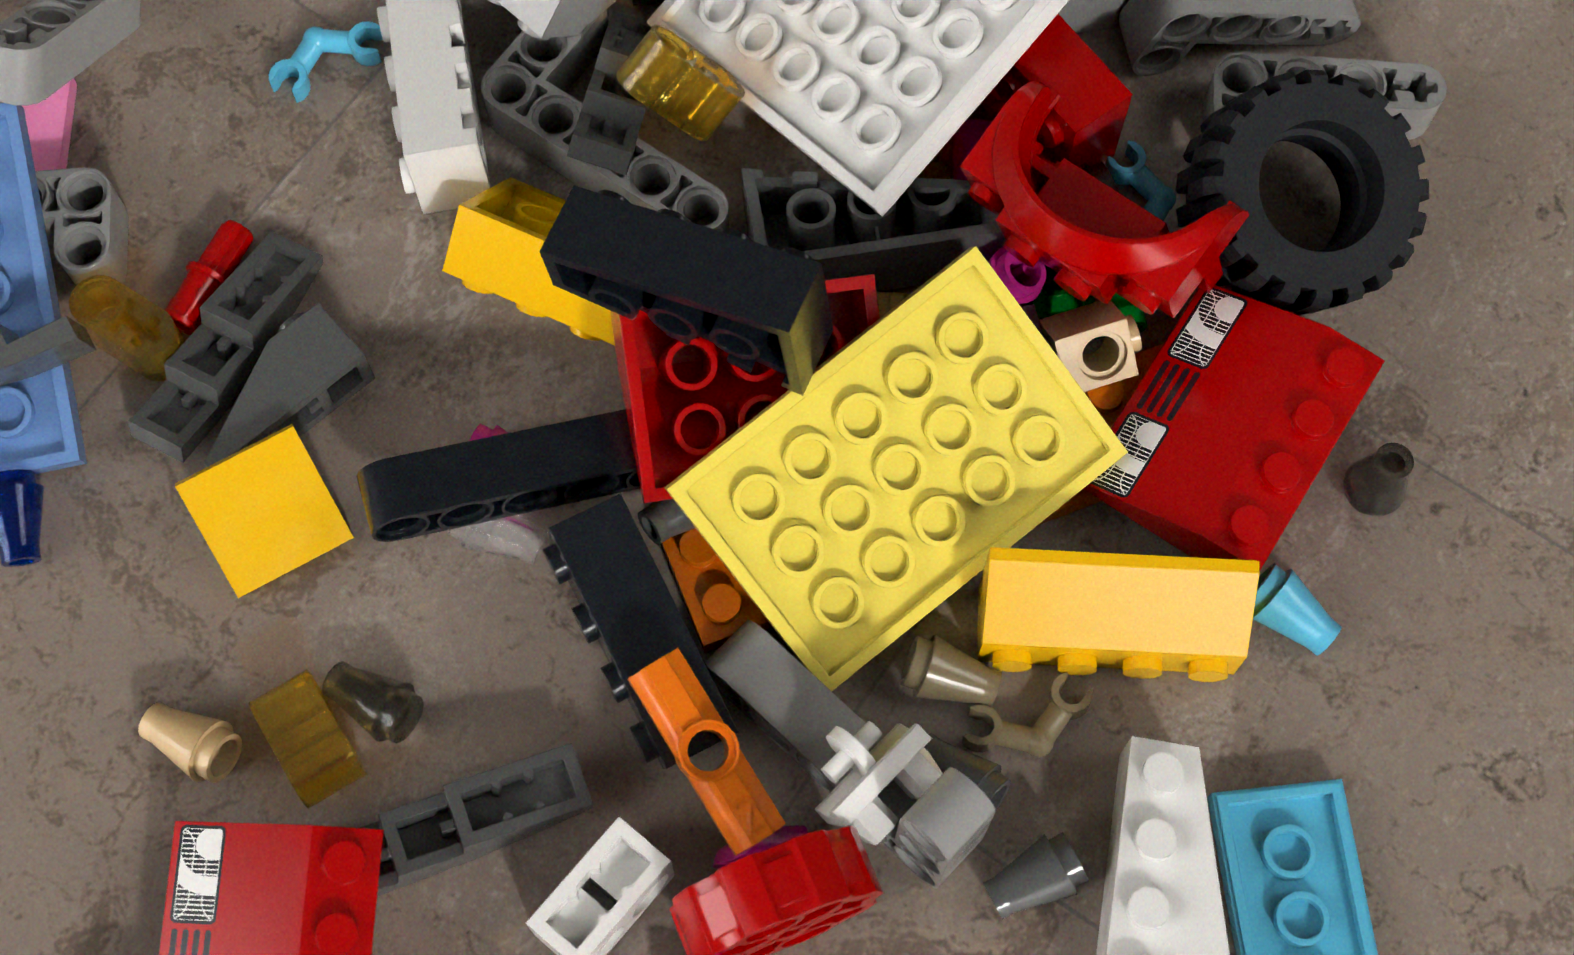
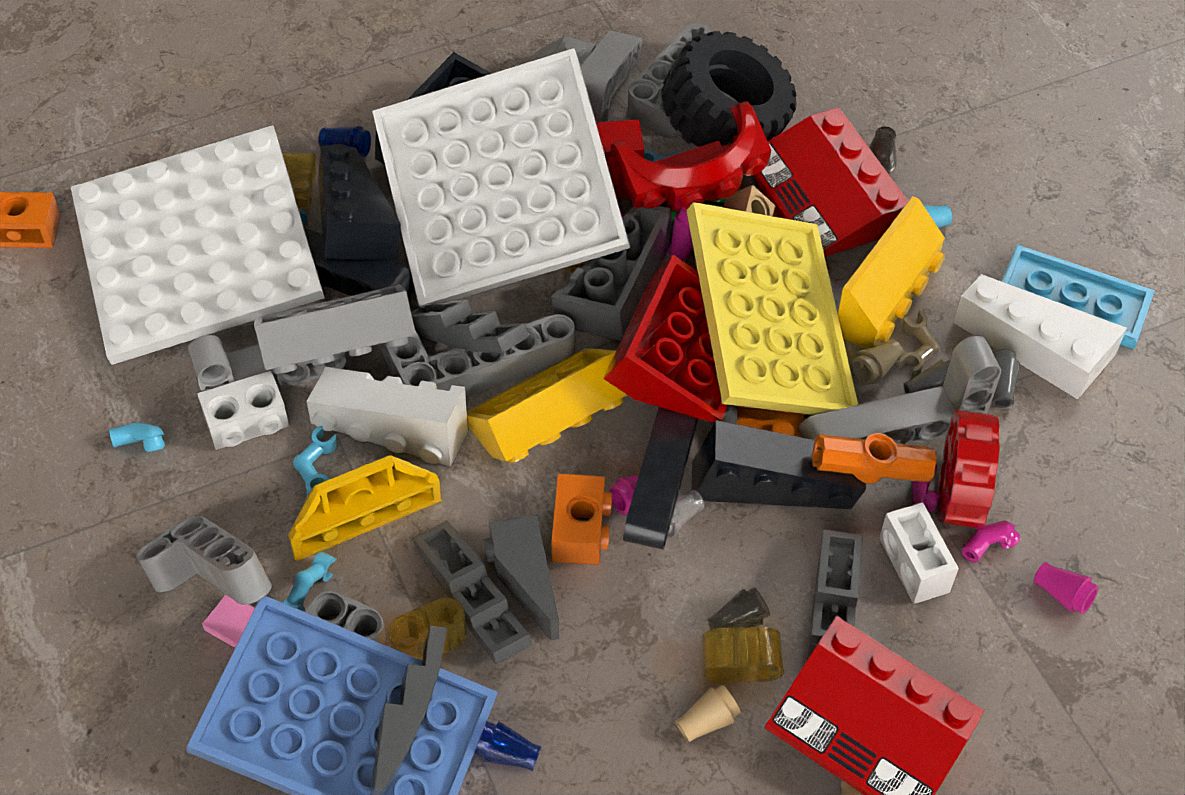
camera: 60 degrees left, 15 degrees down
(162, 153) = (305, 579): none -> medium azure arm
(208, 274) = (417, 578): red axle -> none
(264, 510) = (595, 610): yellow tile -> none
(274, 134) = (360, 503): none -> yellow wedge
(422, 383) = (580, 498): none -> orange brick
(680, 83) = (487, 292): clear yellow beam -> none
(693, 281) = (646, 306): black wedge -> none
(896, 757) = (924, 398): white hips -> none

